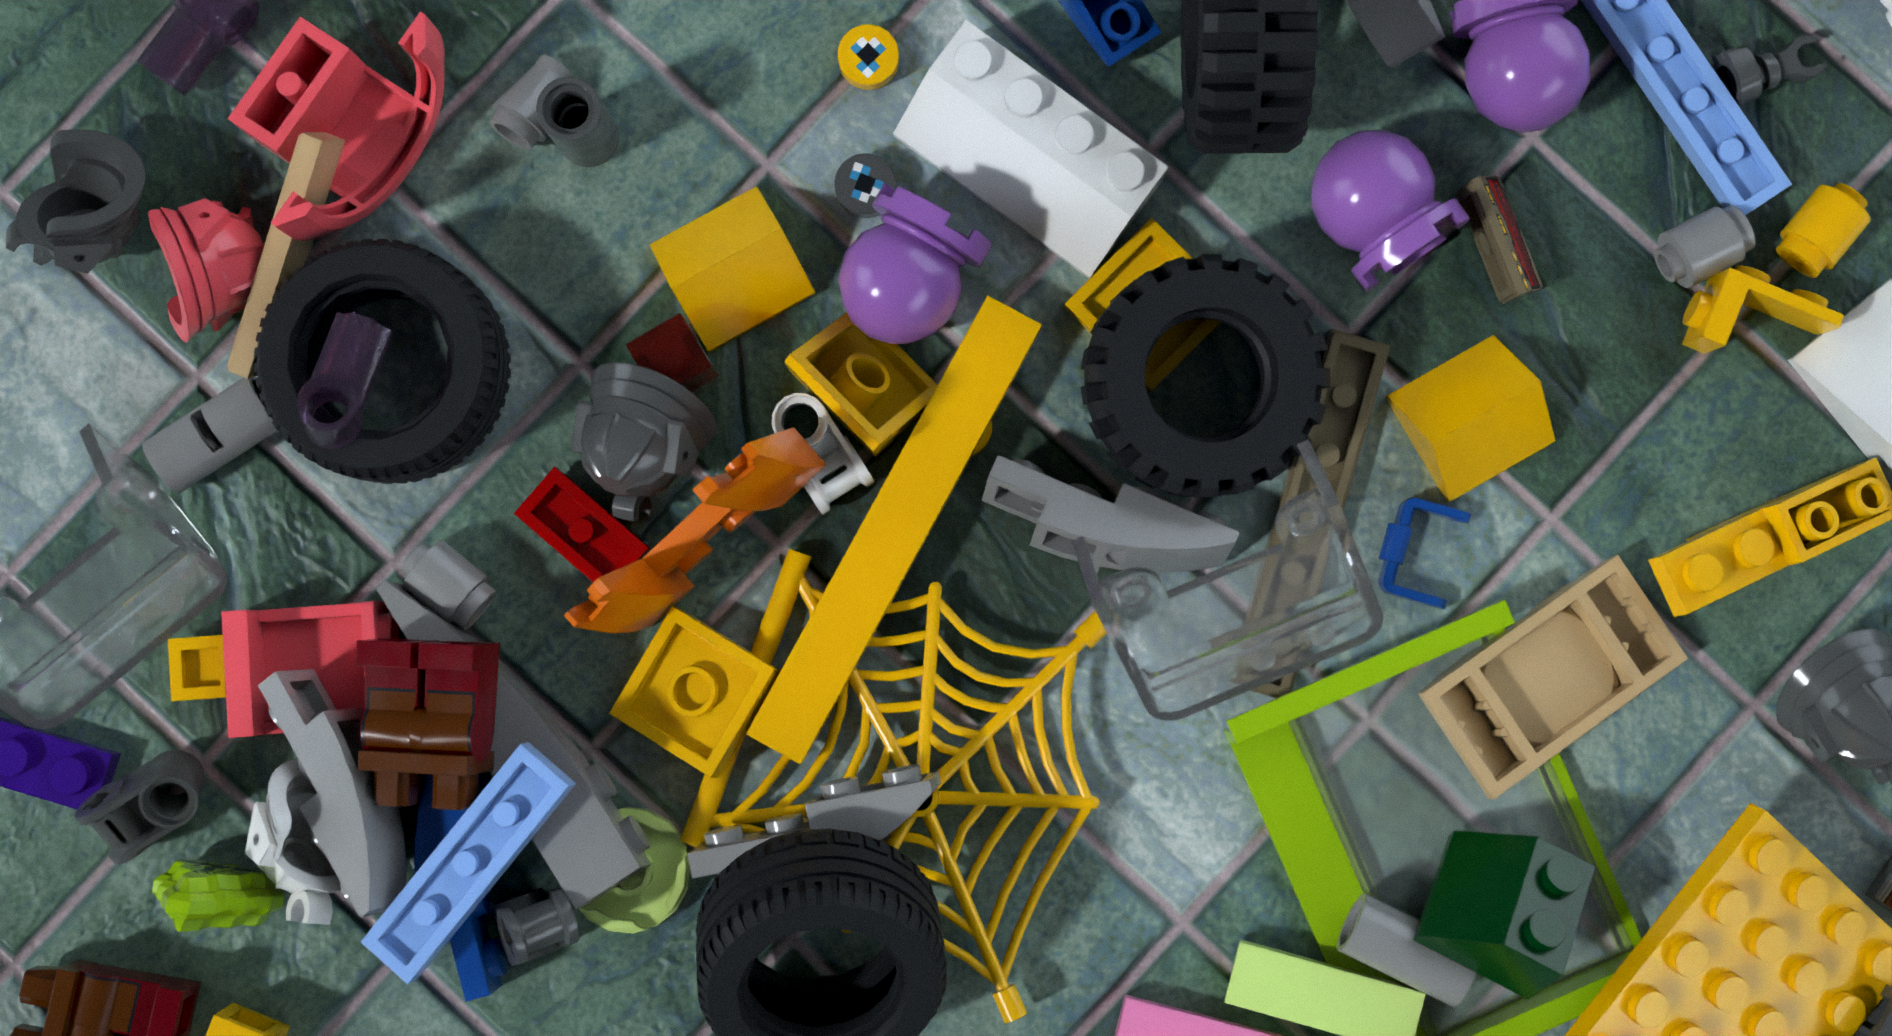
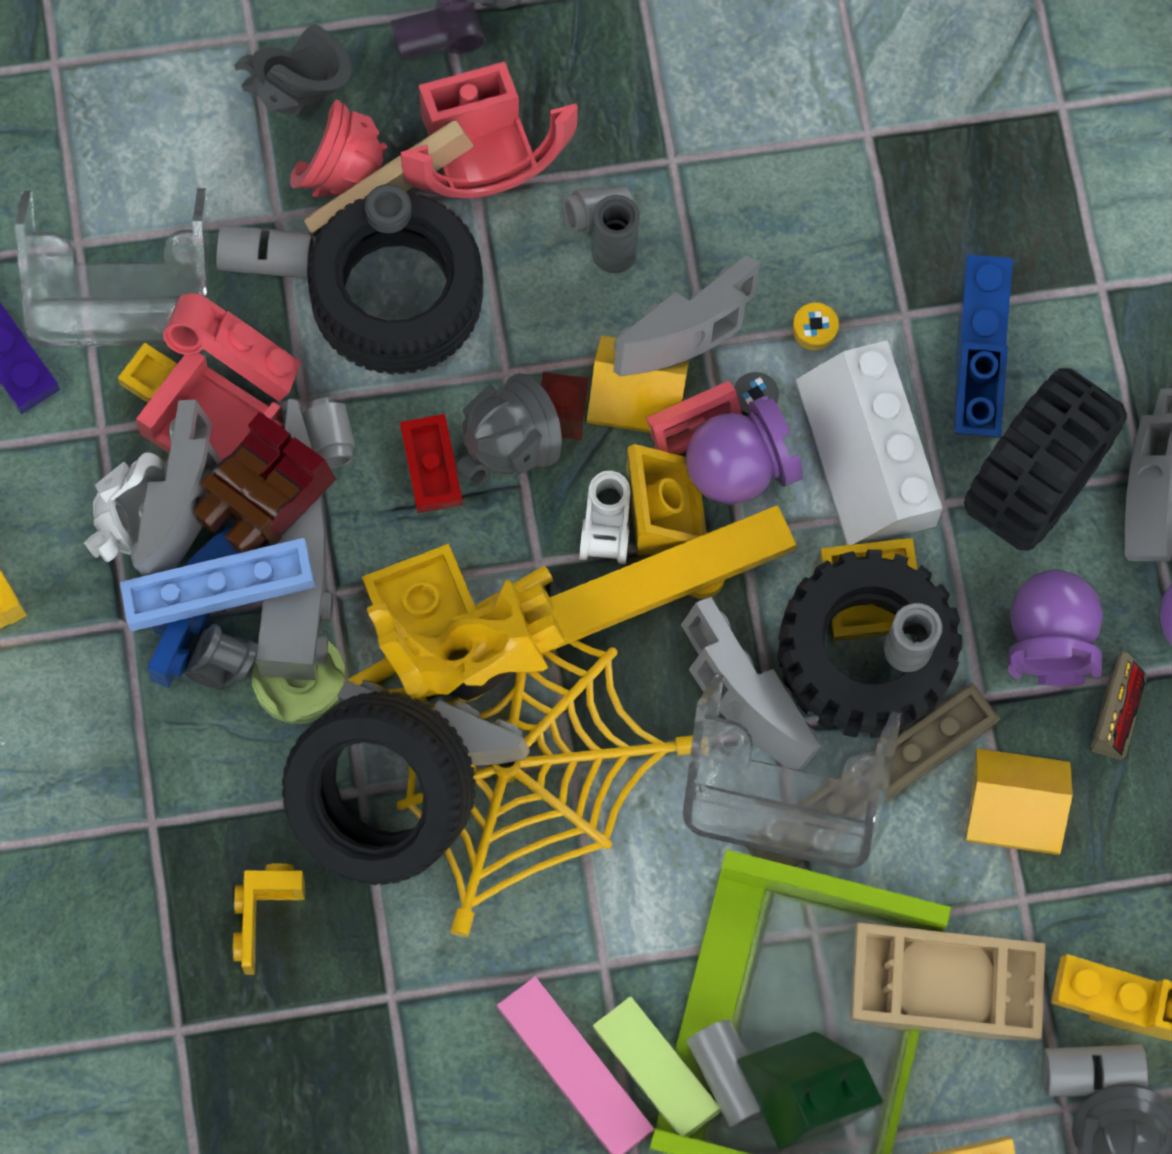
camera: 35 degrees right, 15 degrees down
(136, 811) = (45, 422): dark grey piece -> none
(215, 895) = (54, 502): lime rock -> none
(218, 579) = (204, 325): none -> coral plate
(309, 295) = (388, 208): none -> dark grey tile
(344, 376) = (370, 264): clear purple piece -> none
(742, 171) = (686, 327): none -> light grey slope
(754, 481) = (561, 492): orange wedge -> none
(812, 287) = (690, 414): none -> coral tile
(831, 693) = (497, 638): none -> yellow hips
(1296, 348) = (915, 620): none -> light grey pin
(1396, 545) = (914, 838): blue piece -> none
(1766, 649) = (1092, 1069): none -> light grey pin

